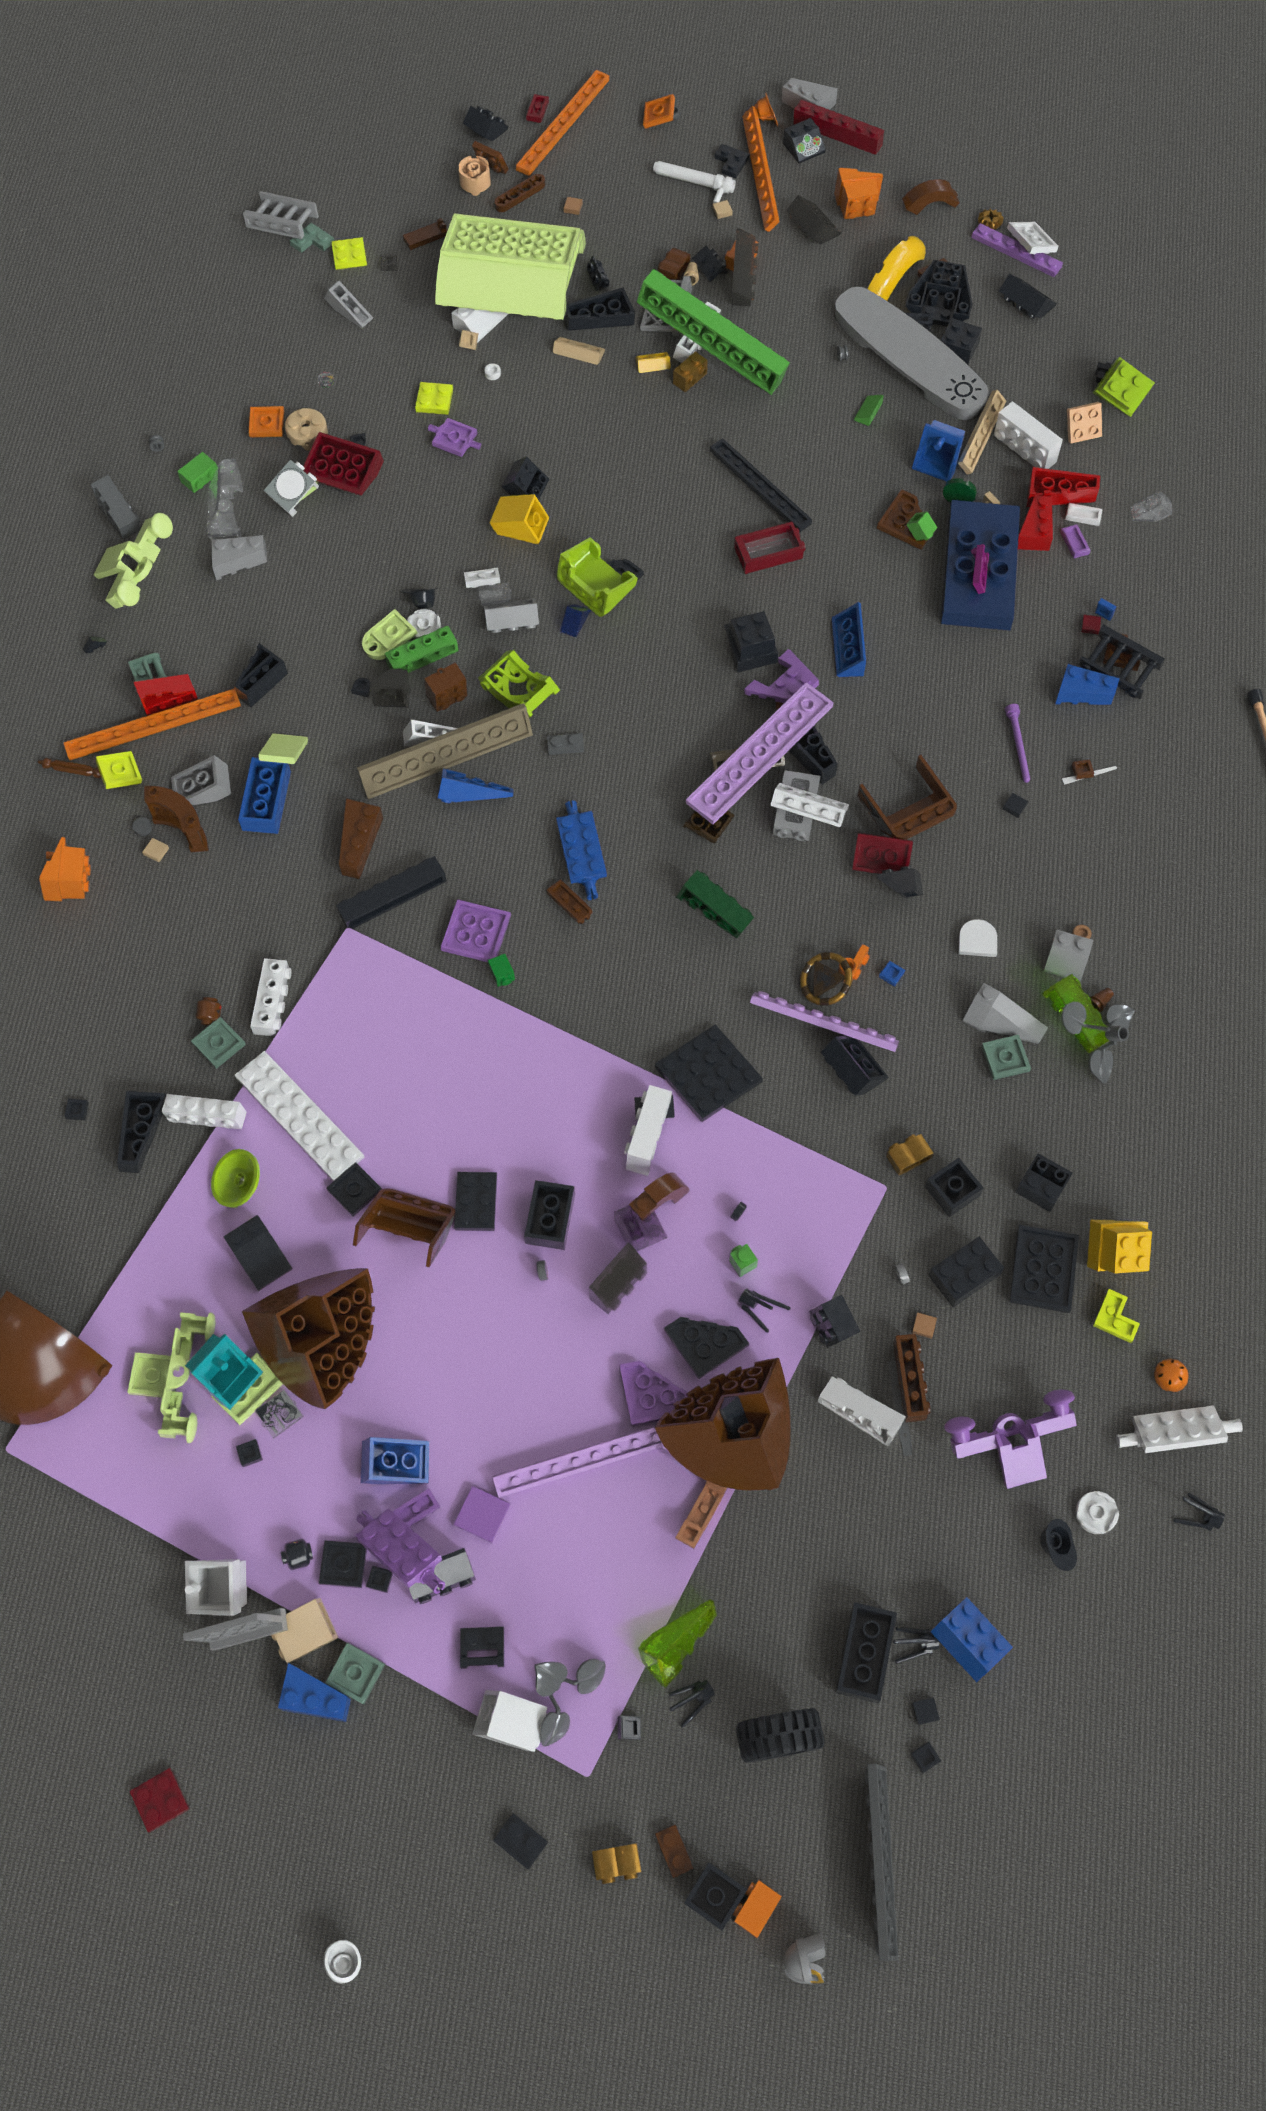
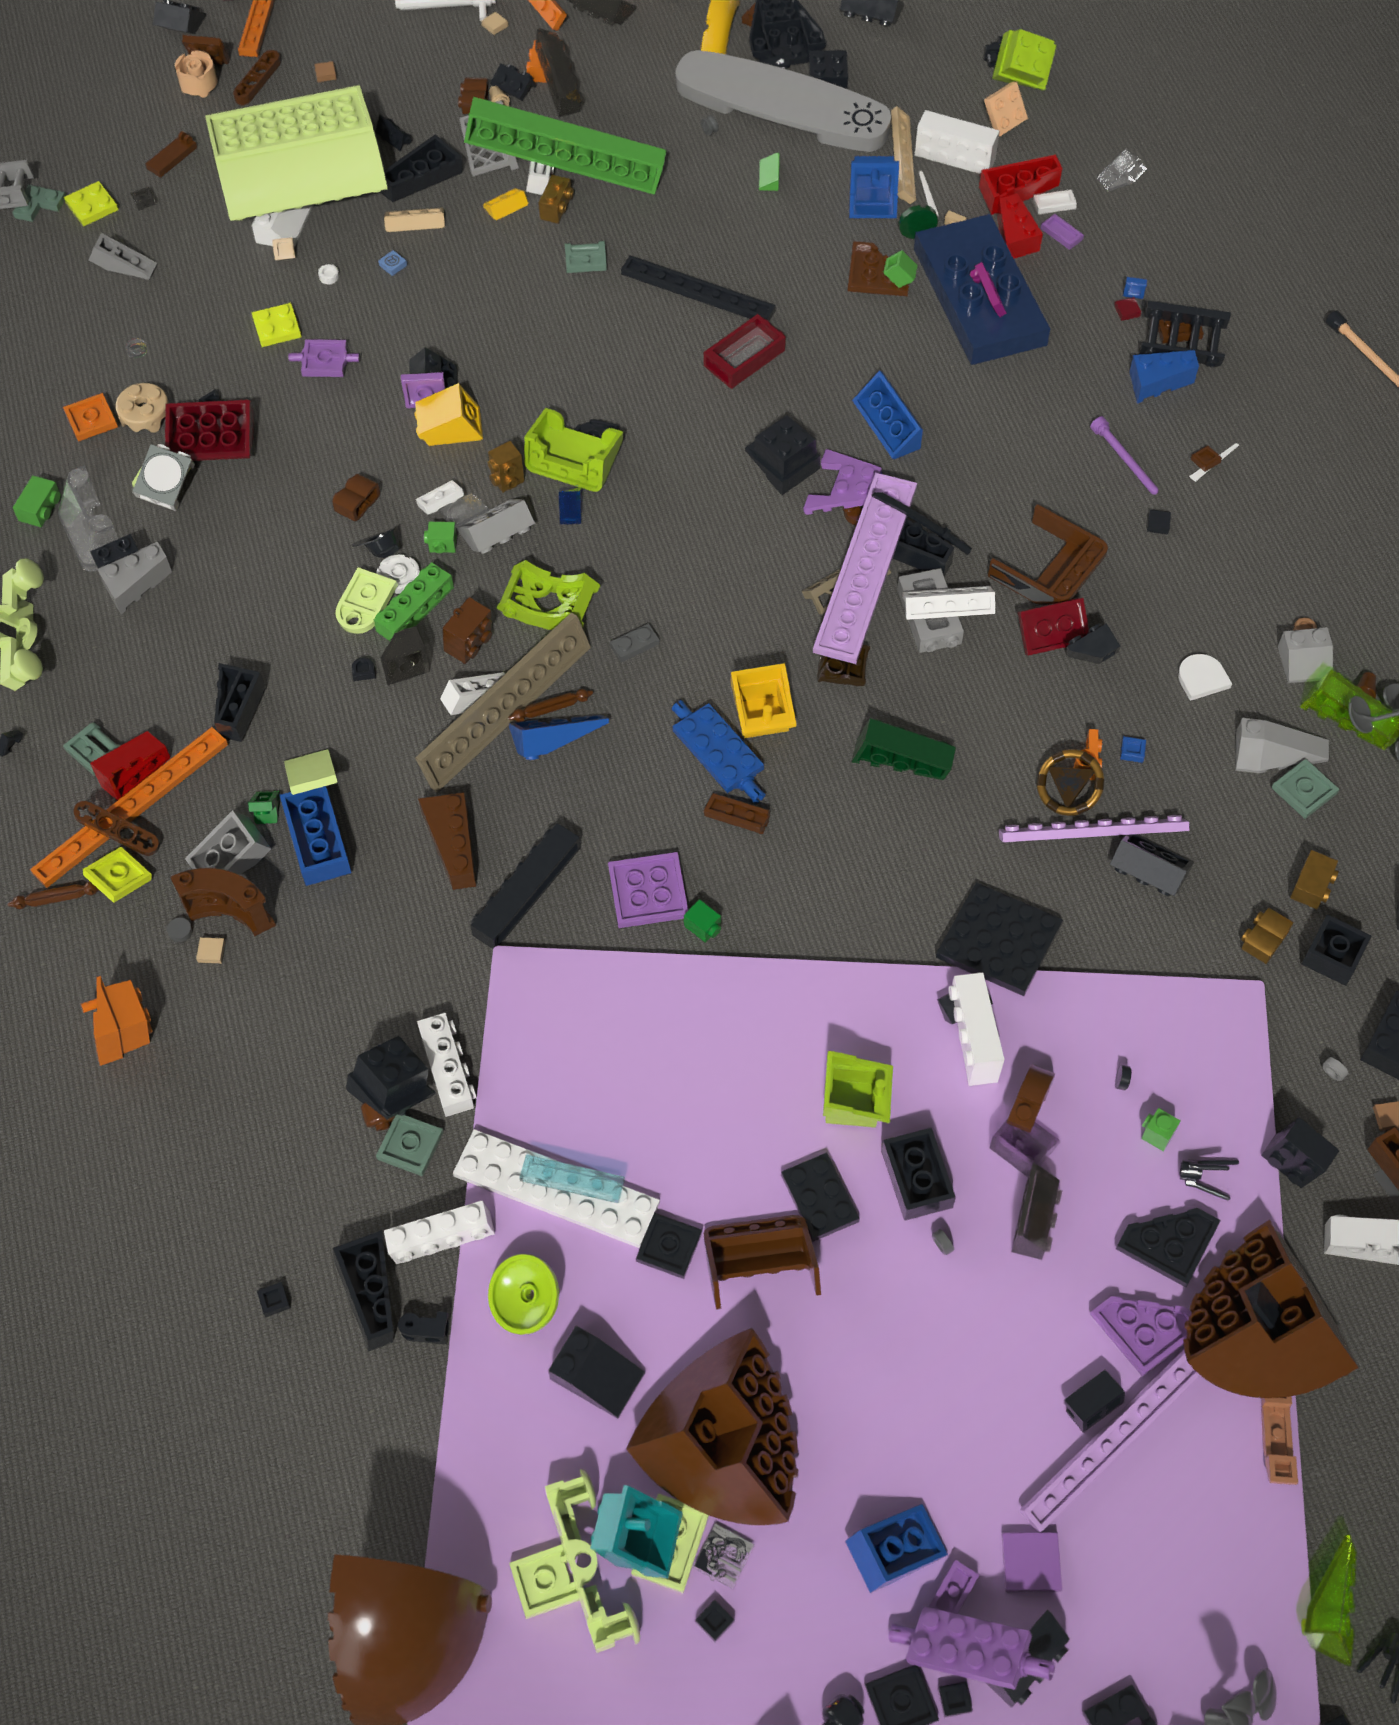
camera: 25 degrees left, 5 degrees down
(134, 735) = (117, 826): none -> reddish brown beam
(163, 1173) = (425, 1329): none -> black leg
(222, 991) = (390, 1078): none -> black piece
(229, 531) = (114, 551): none -> black hinge
(241, 761) = (265, 807): none -> green slope
(310, 1113) = (572, 1178): none -> clear light blue tile
(422, 554) = (356, 497): none -> reddish brown brick
(467, 608) = (441, 537): none -> bright green brick
(485, 767) = (550, 705): none -> reddish brown wheel
(509, 486) = (421, 386): none -> medium lavender tile
(535, 1136) = (856, 1091): none -> lime piece
(538, 572) = (505, 466): none -> pearl gold brick
(543, 379) = (392, 263): none -> medium blue tile
(586, 1427) = (1094, 1400): none -> black hinge
(627, 824) = (763, 700): none -> yellow piece
(689, 427) = (585, 257): none -> sand green plate
(838, 750) = (944, 533): none -> black sword
(969, 1128) = (1314, 880): none -> pearl gold brick
(985, 473) = (927, 192): none -> white sticker

